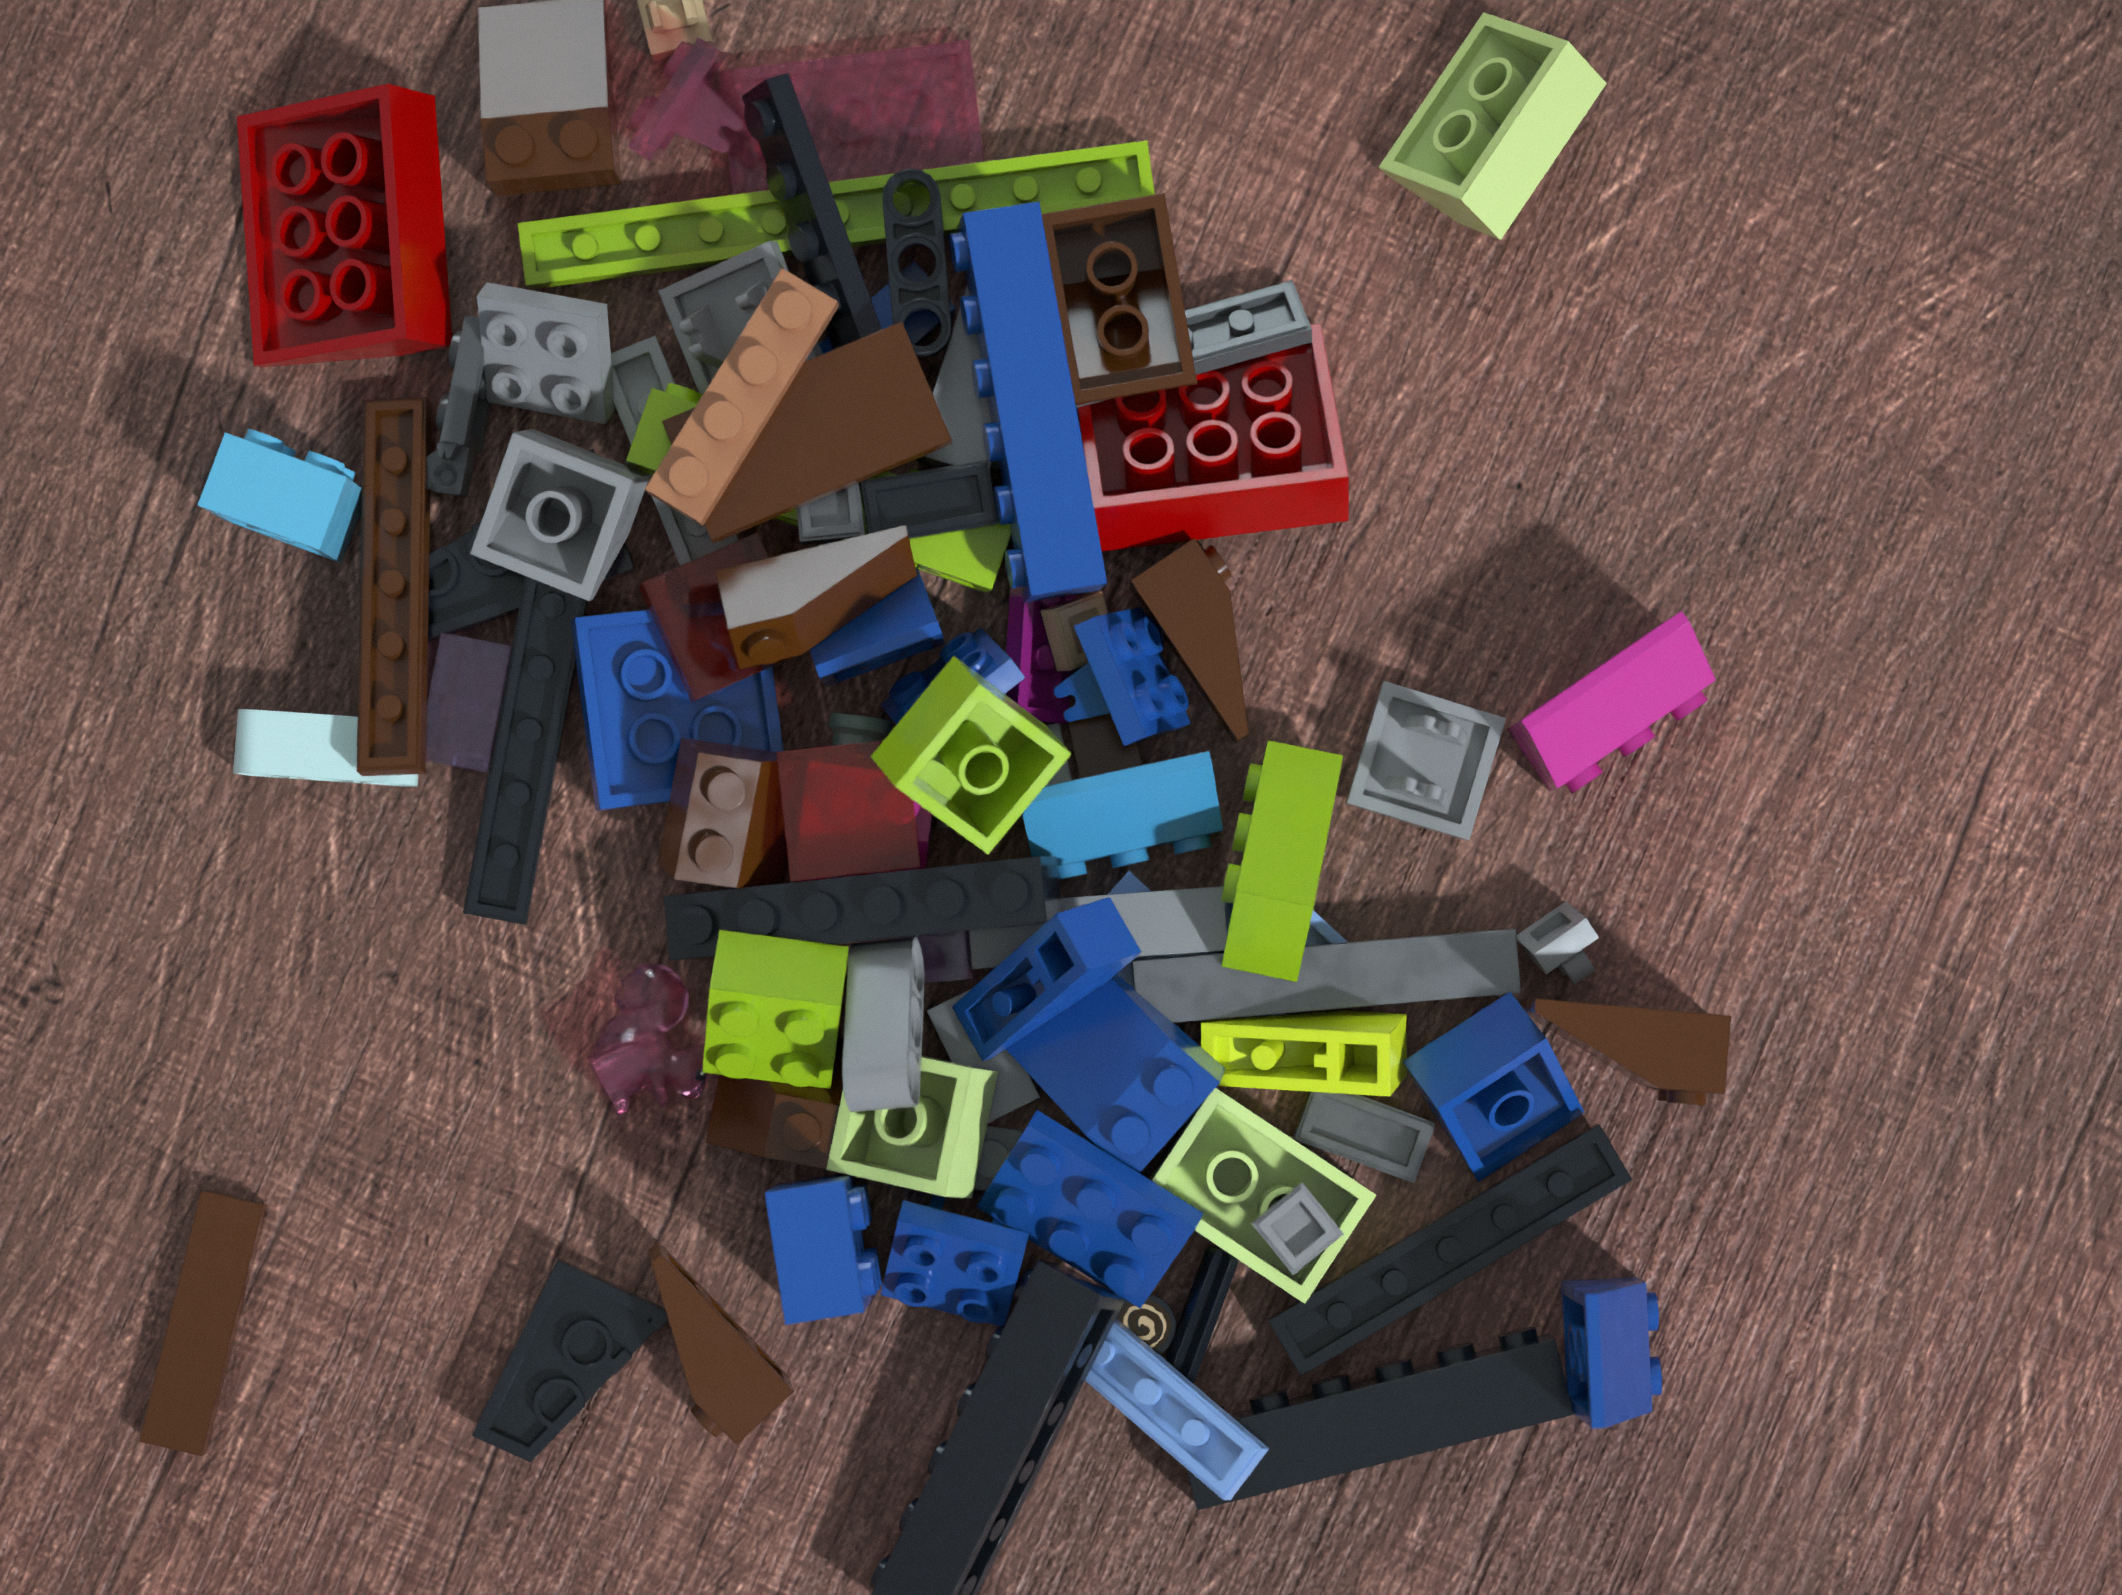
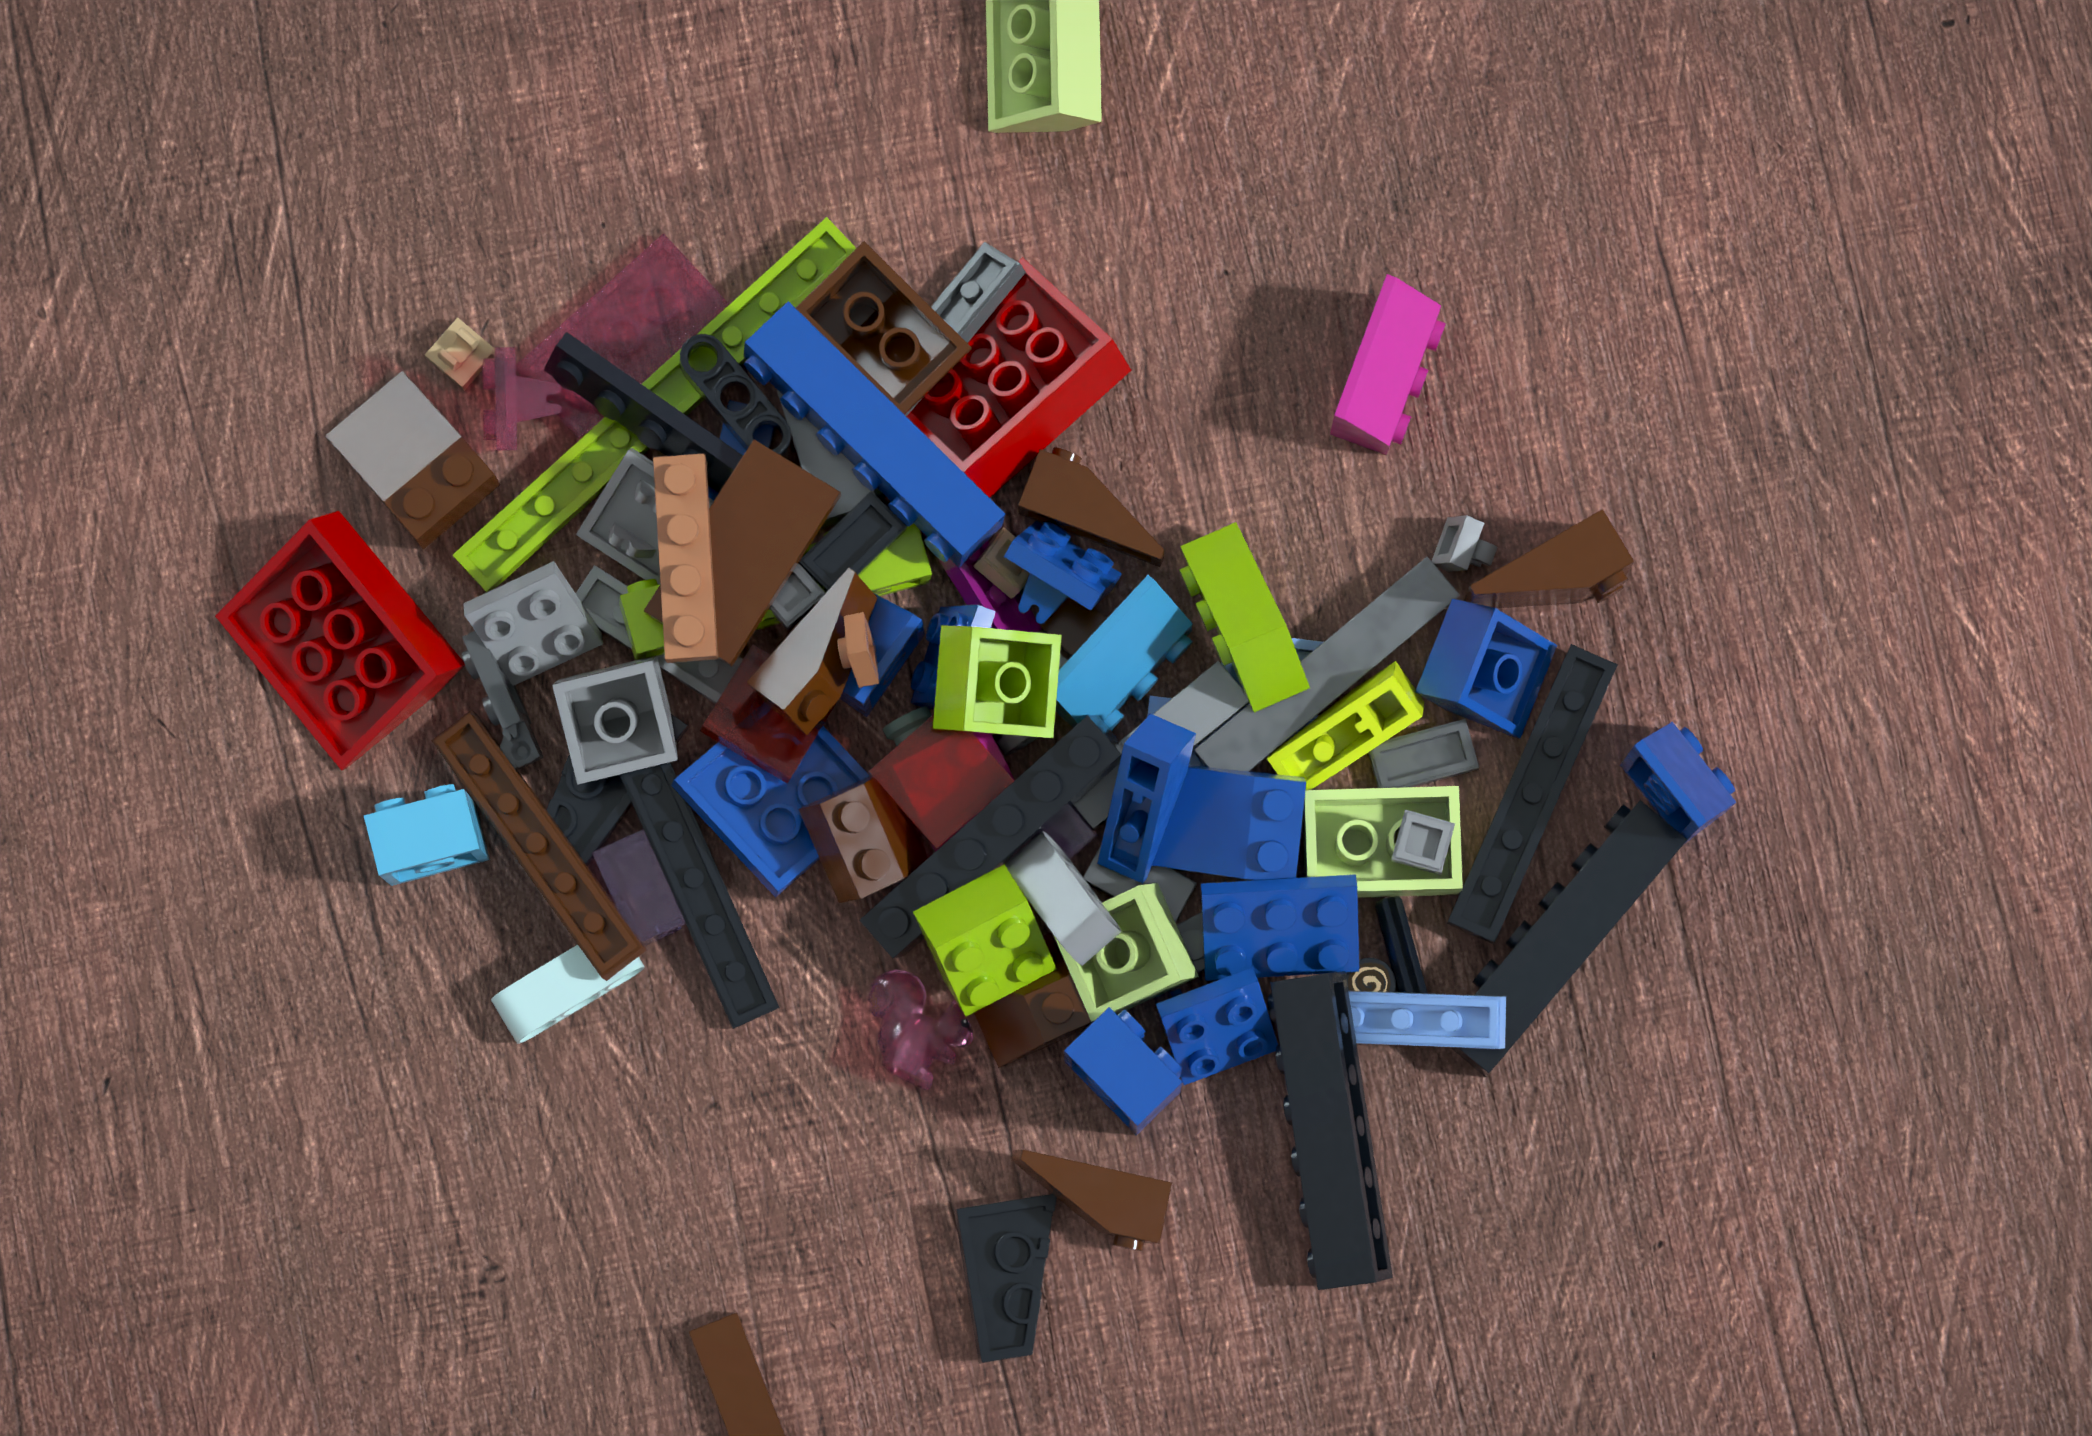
camera: 30 degrees left, 5 degrees down
(852, 620) = (858, 650): none -> nougat plate
(1425, 761) = (1291, 490): light grey plate -> none

